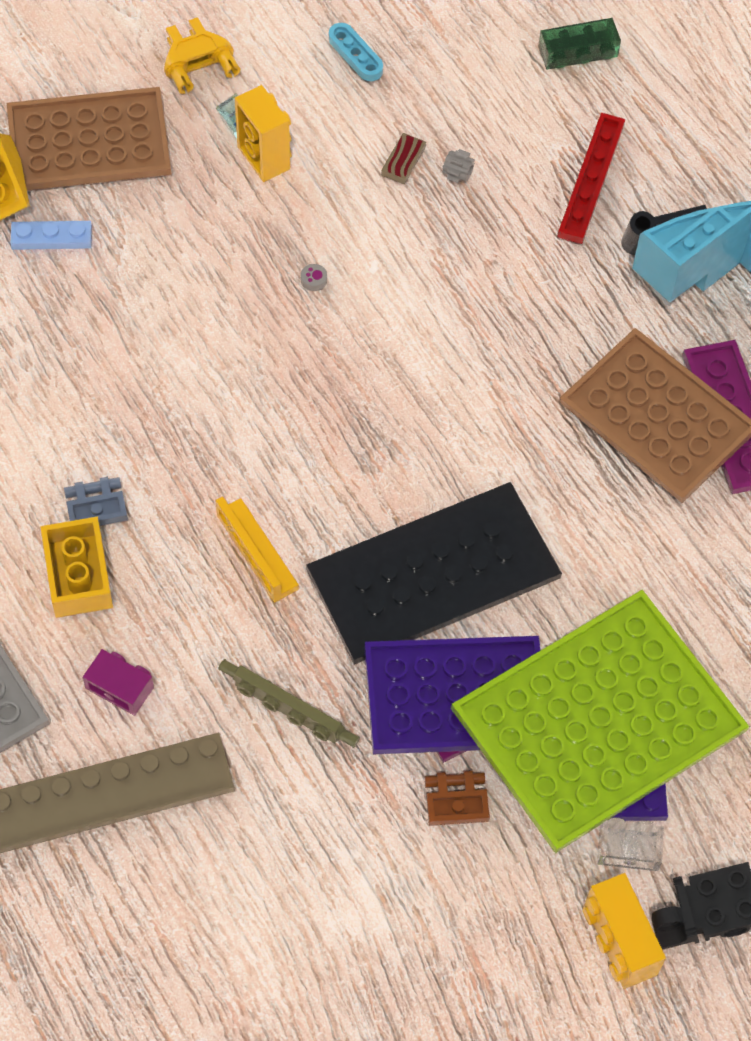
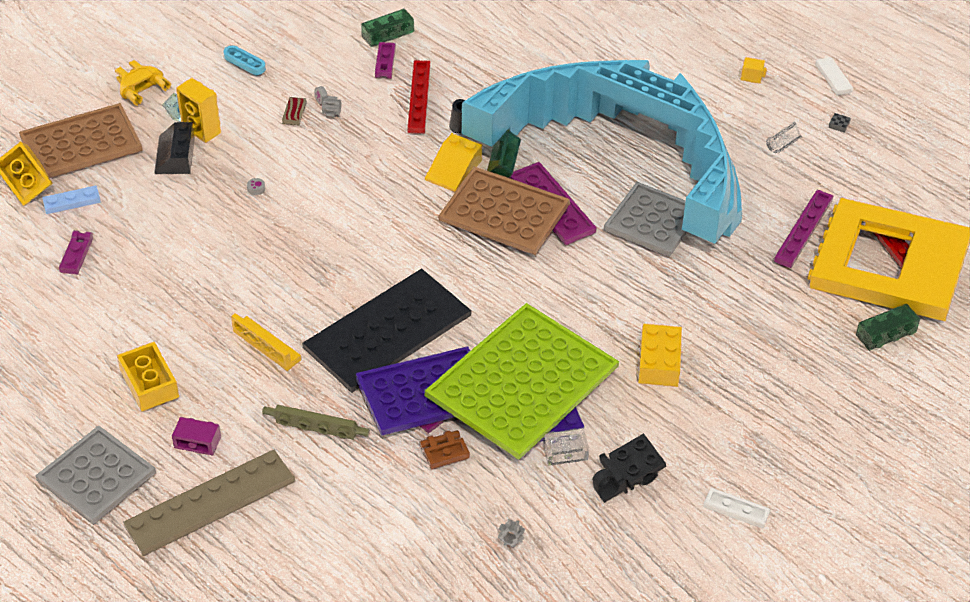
camera: 15 degrees left, 15 degrees down
(34, 327) = (76, 252): none -> magenta plate
(108, 506) = (152, 333): sand blue plate -> none
(216, 186) = (175, 149): none -> black slope
(448, 140) = (320, 93): none -> light grey tile
(510, 969) = (511, 539): none -> light grey gear
(560, 100) = (385, 60): none -> magenta plate
(609, 310) = (454, 162): none -> yellow slope
(623, 931) = (578, 491): yellow brick -> none
(685, 320) = (504, 154): none -> clear green brick

